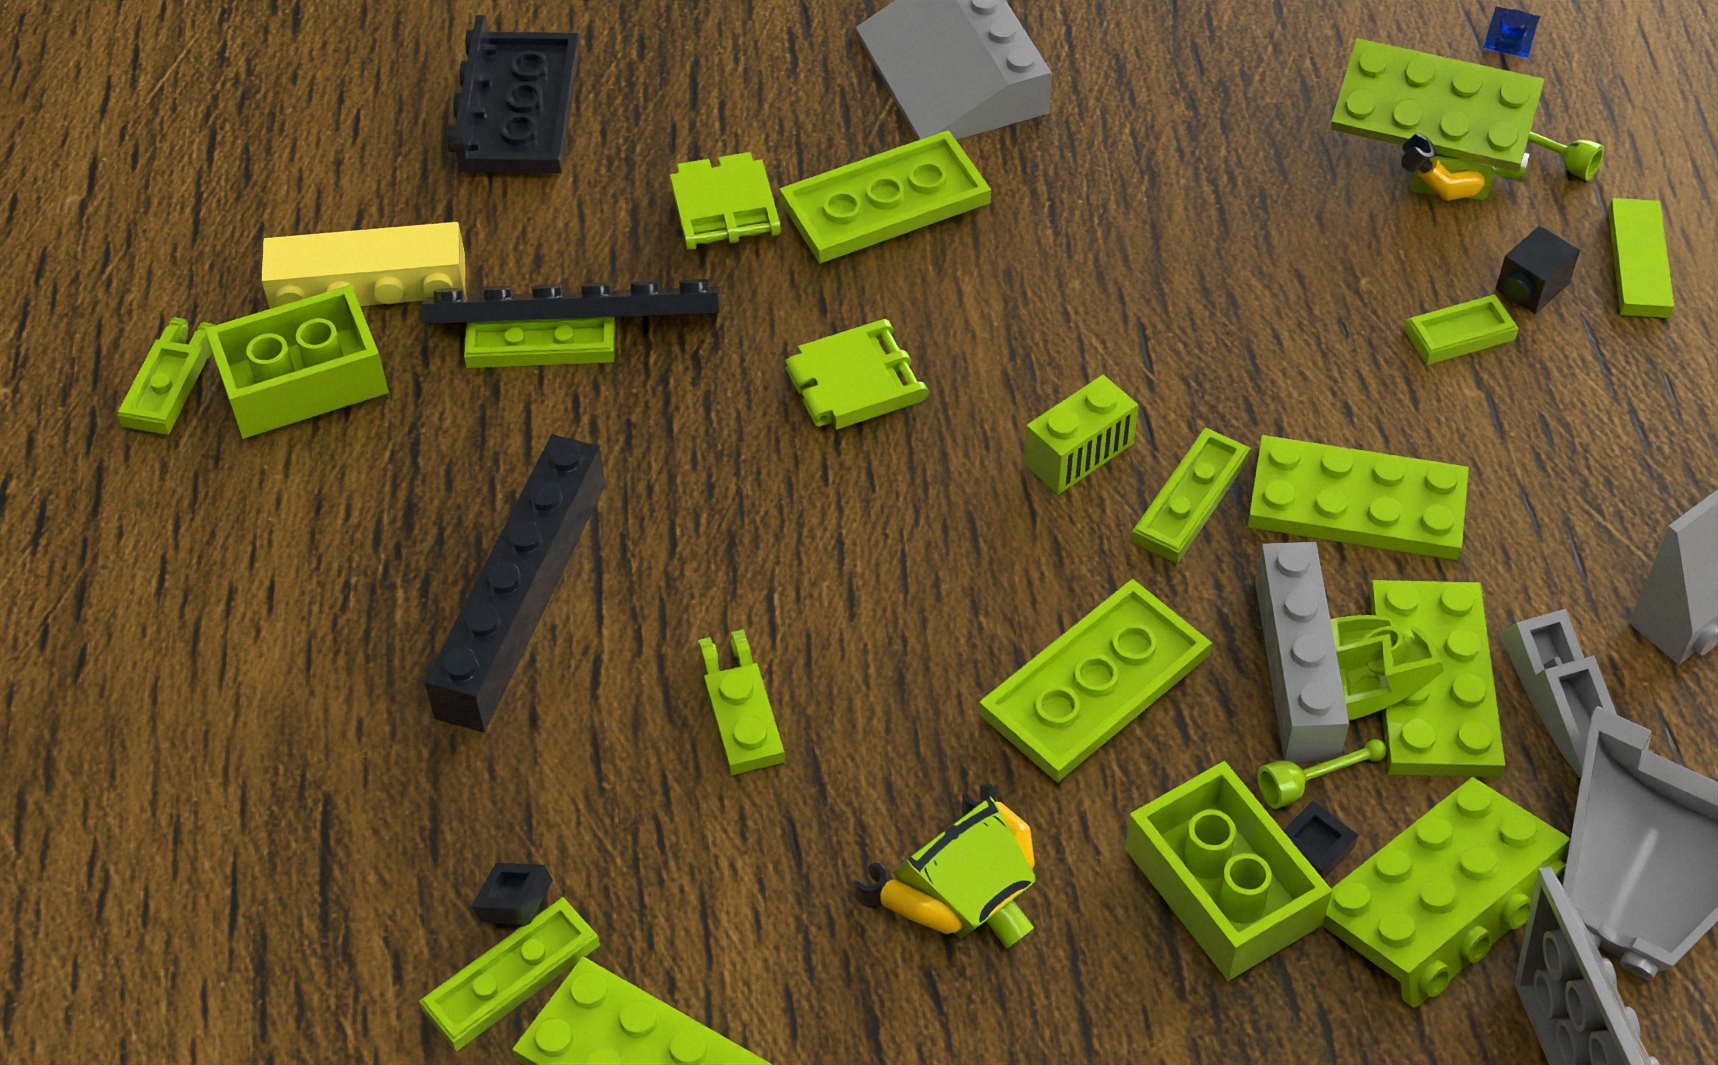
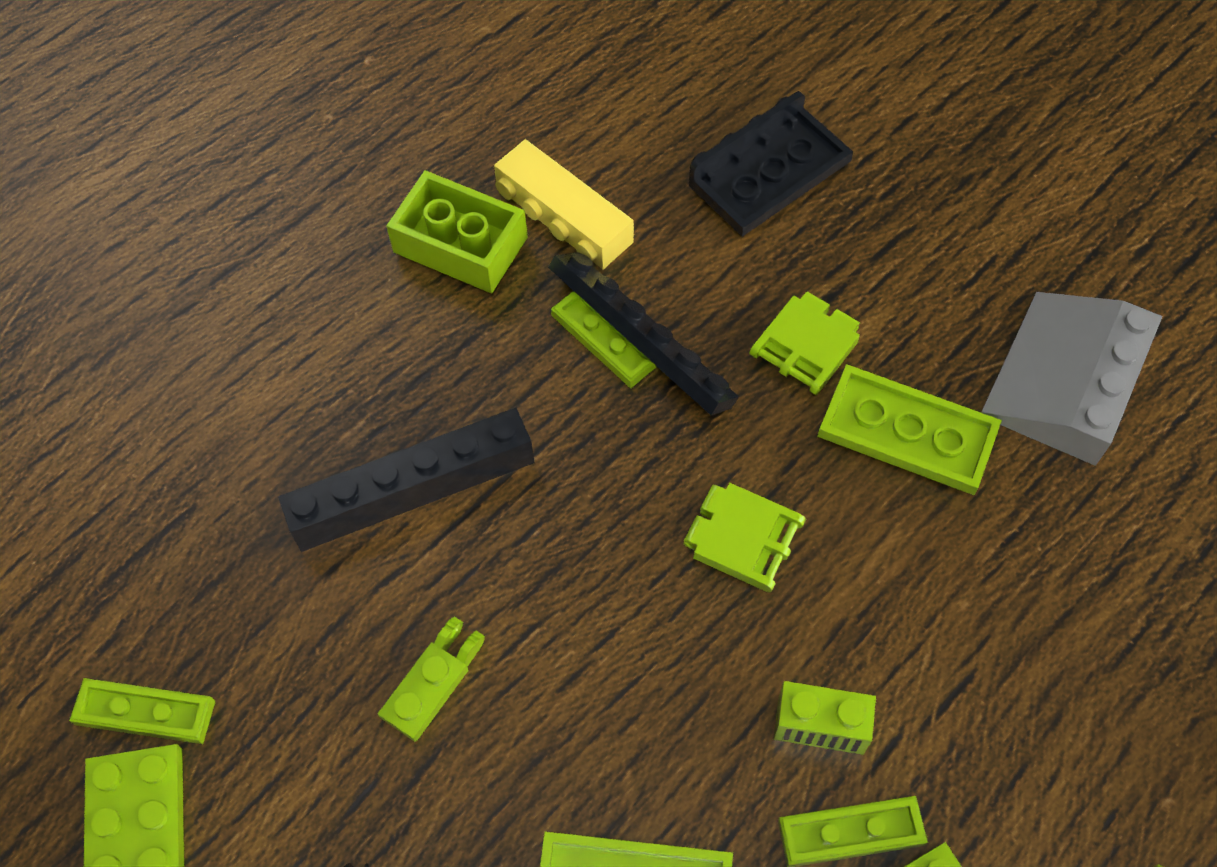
camera: 50 degrees right, 10 degrees up
(166, 378) = (395, 180): lime hinge -> none
(512, 893) = (188, 667): black plate -> none

